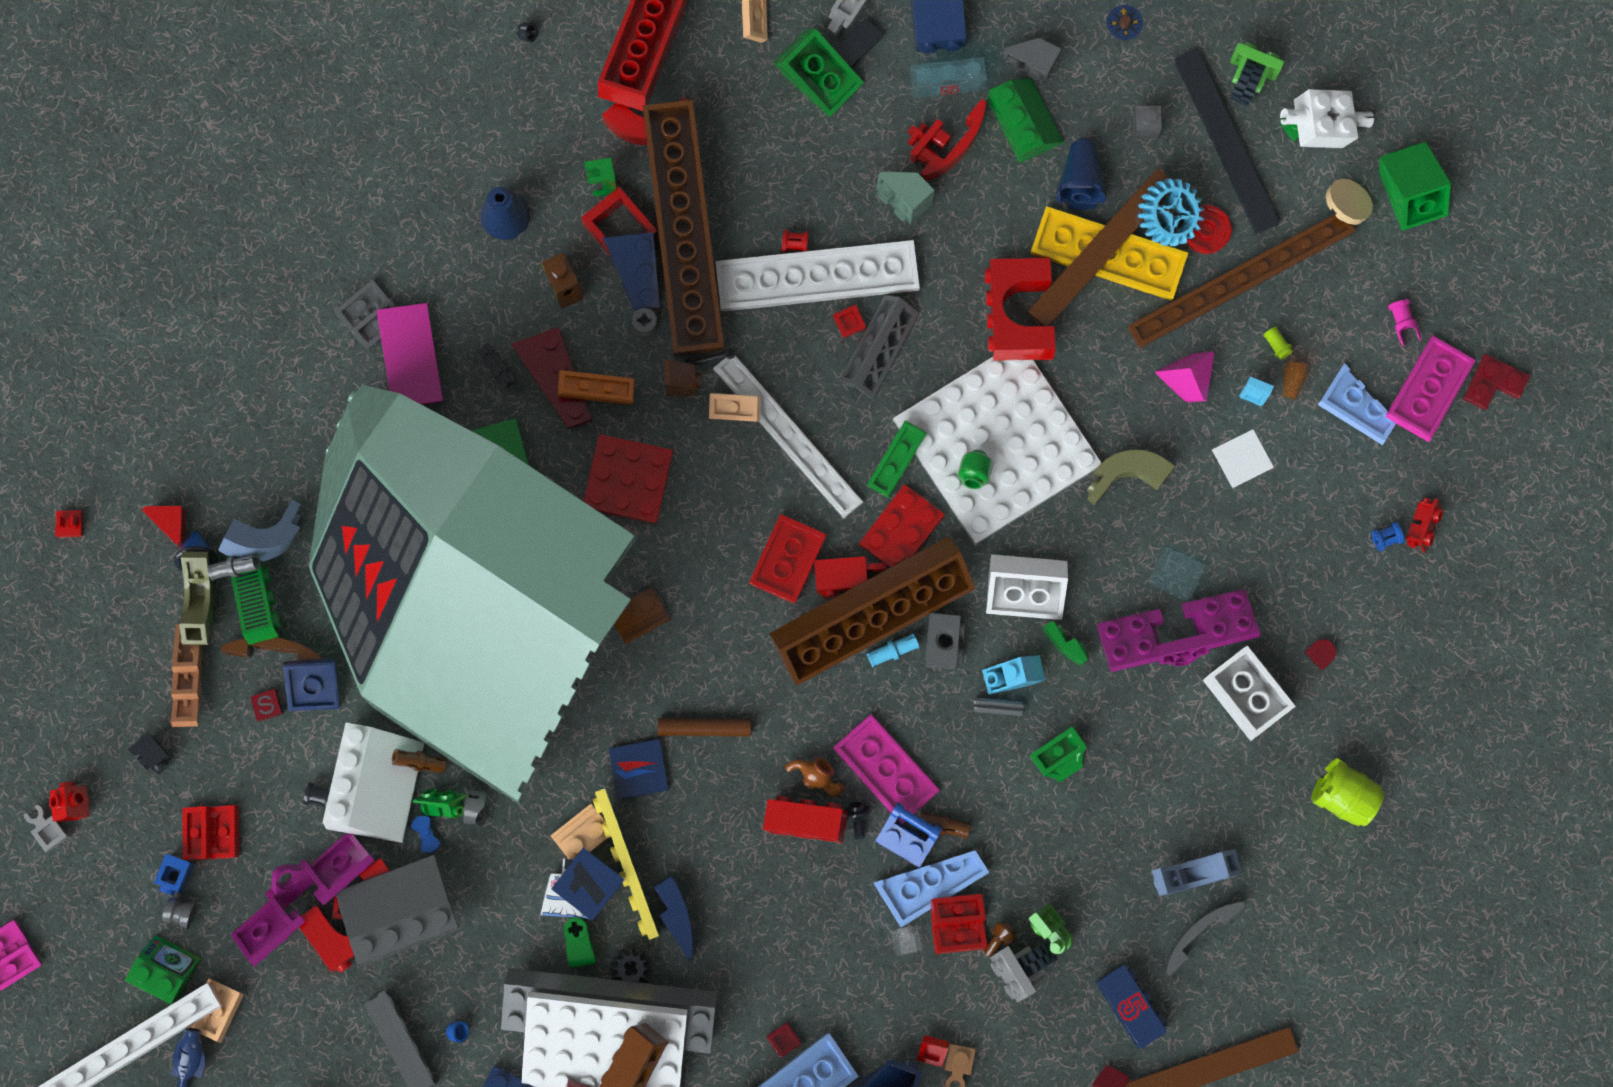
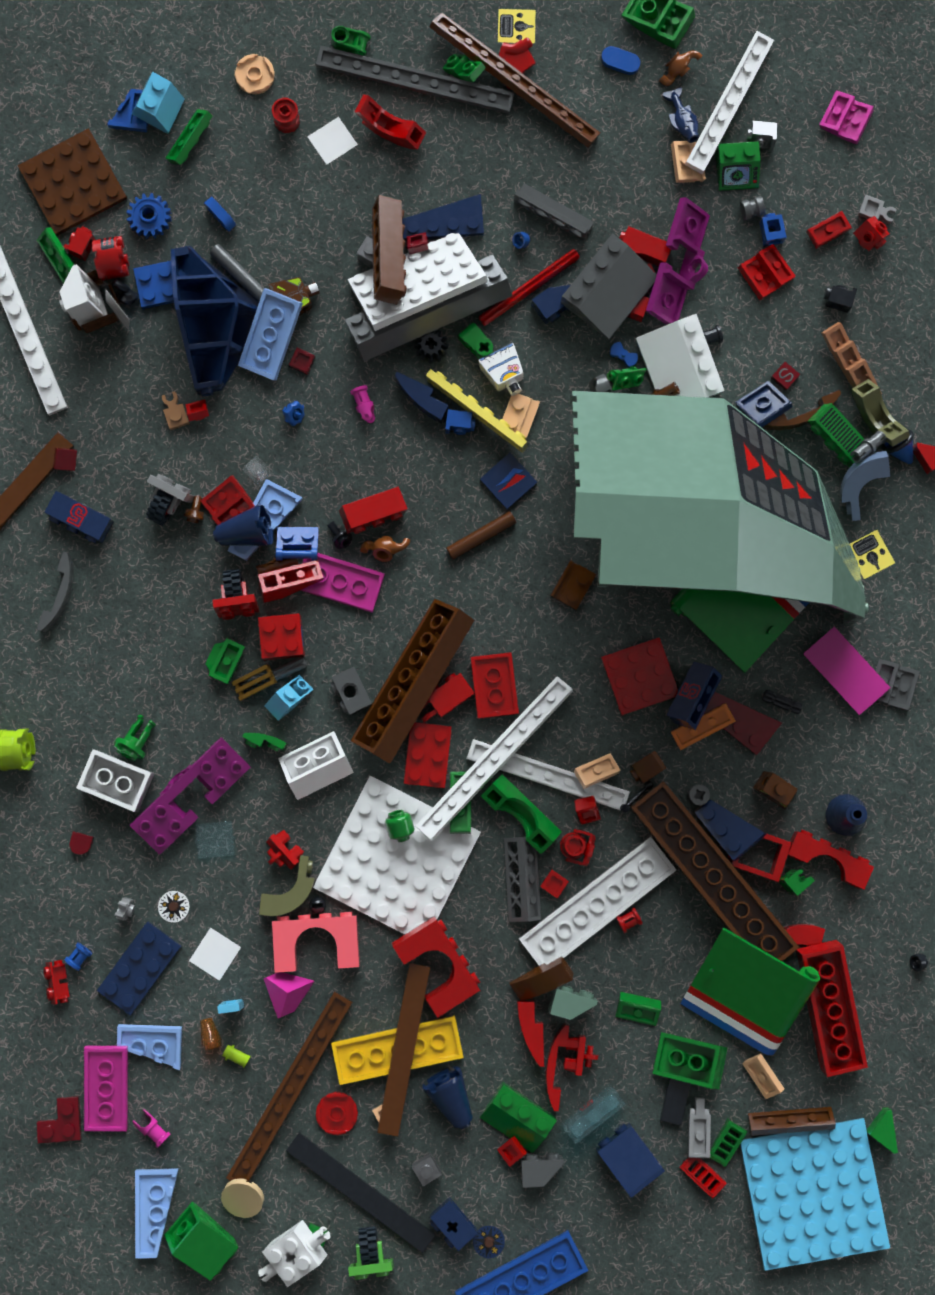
camera: 145 degrees right, 5 degrees up
(111, 838) = (829, 229): none -> red plate
(113, 989) = (764, 133): none -> brick
(302, 462) = (871, 554): none -> sticker
(469, 940) = (549, 304): none -> dark blue slope
(477, 972) = (529, 287): none -> red axle
(535, 155) = (853, 870): none -> red arch
(585, 422) = (694, 695): none -> dark blue brick
(587, 884) = (493, 379): dark blue tile -> none
(652, 863) = (459, 422): none -> blue brick
(719, 96) = (749, 992): none -> green door
(745, 945) = (364, 405): none -> dark pink piece
(769, 375) = (587, 810): none -> red slope
(805, 345) = (574, 846): none -> red piece
(828, 984) = (294, 413): none -> blue piece
(831, 383) = (538, 828): none -> green arch
(833, 481) = (494, 758): none -> white plate
(838, 152) = (638, 1008): none -> green slope
(892, 650) = (383, 665): medium azure pin -> none
(919, 232) = (542, 979): none -> reddish brown slope
(940, 797) = (289, 580): none -> red slope
(956, 878) = (246, 529): none -> dark blue cone
(960, 193) = (531, 1030): none -> red slope
(984, 743) = (281, 637): none -> red brick
(1009, 815) = (235, 597): none -> red plate
(1049, 924) = (164, 535): bright green plate -> none
(1050, 90) = (512, 1151): none -> red plate
(1061, 715) = (239, 689): none -> pearl gold tile
(1096, 406) = (287, 931): none -> coral arch
(1106, 448) = (317, 900): none -> black hinge
(1113, 529) = (279, 850): none -> red hips
(1147, 69) = (451, 1212): none -> dark blue brick
(1164, 230) = (360, 1091): medium azure gear -> none
(1197, 872) = (84, 633): sand blue arch -> none
(1213, 721) = (130, 746): none -> green piece
(1259, 531) = (173, 906): none -> piece
(1311, 554) = (125, 909): none -> light grey plate
(1329, 489) = (139, 968): none -> dark blue plate
(1444, 249) = (152, 1204): none -> light blue wing

